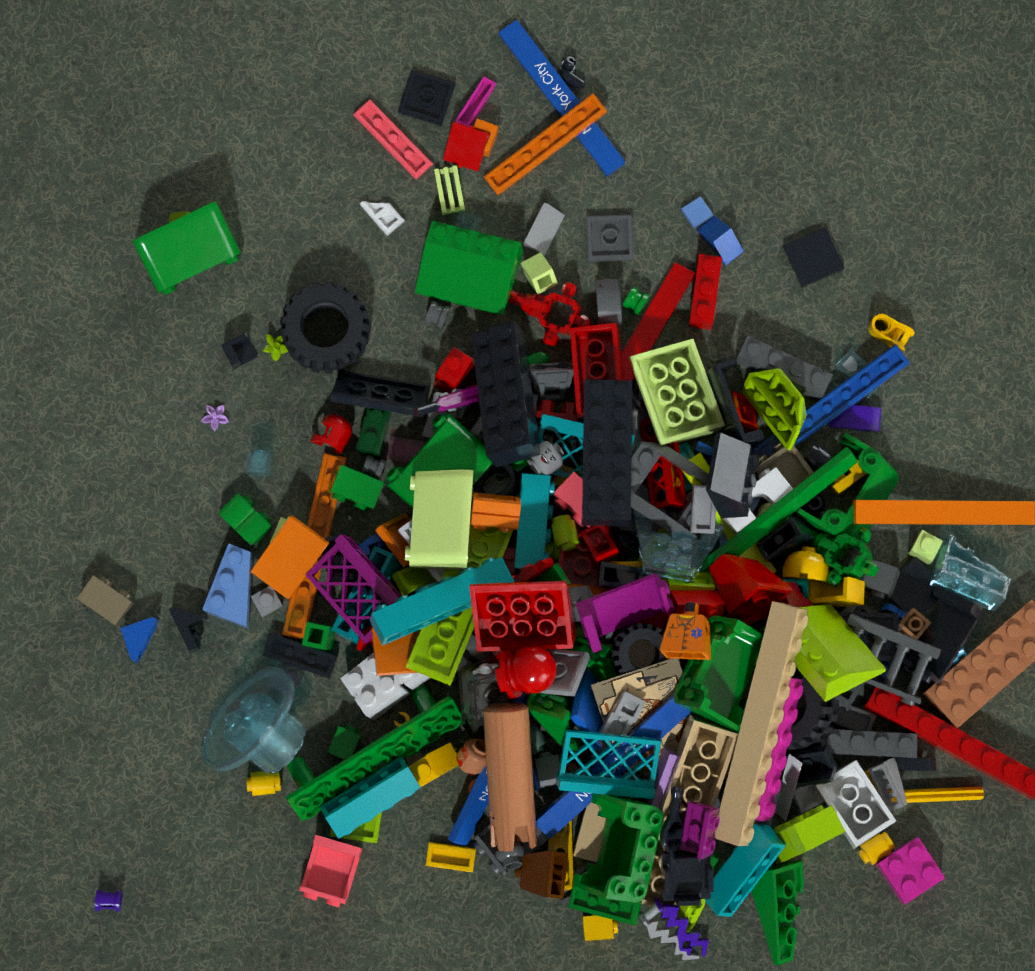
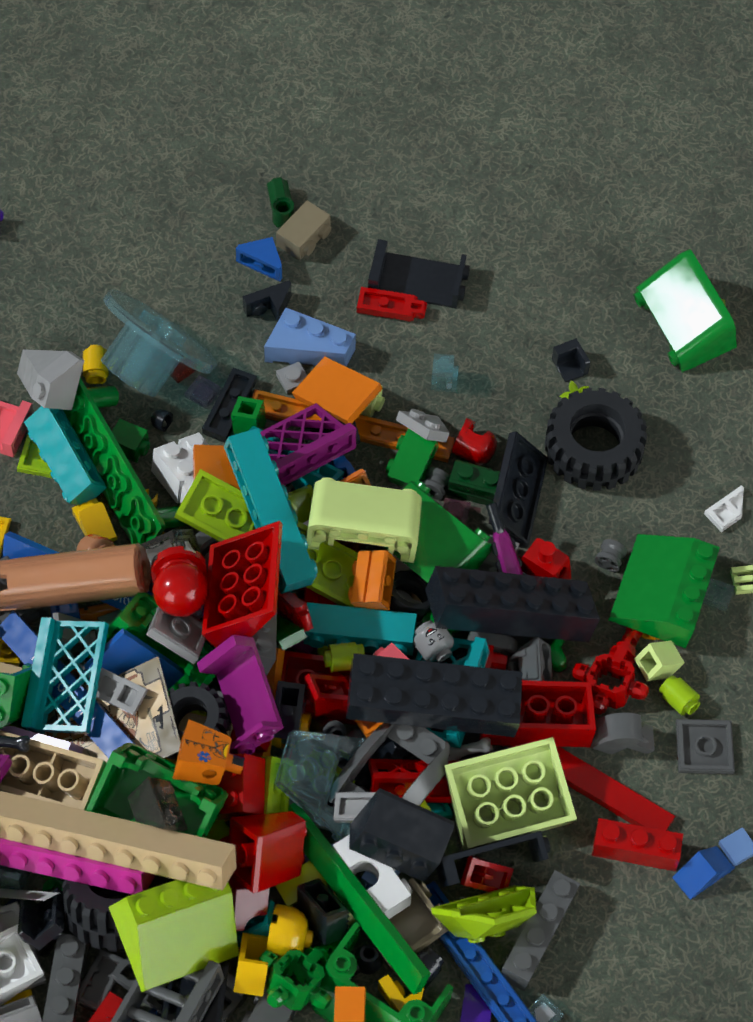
camera: 90 degrees right, 20 degrees down
(71, 625) = (280, 201): none -> dark green piece
(151, 492) = (427, 279): none -> black panel
(184, 516) = (390, 304): none -> red hinge
(215, 416) = (499, 339): lavender plant -> none
(245, 519) = (383, 358): green brick -> none
(300, 815) = (51, 377): none -> light grey wedge
(318, 717) = (159, 417): none -> black hinge
(324, 475) = (425, 425): none -> light grey wing
(543, 229) = (714, 673): light grey slope -> none
(567, 257) = (680, 695): none -> lime brick
(636, 300) = (627, 767): green wheel -> none
(737, 669) = (157, 805): none -> clear smoke slope
(813, 257) = (683, 981): black tile -> none

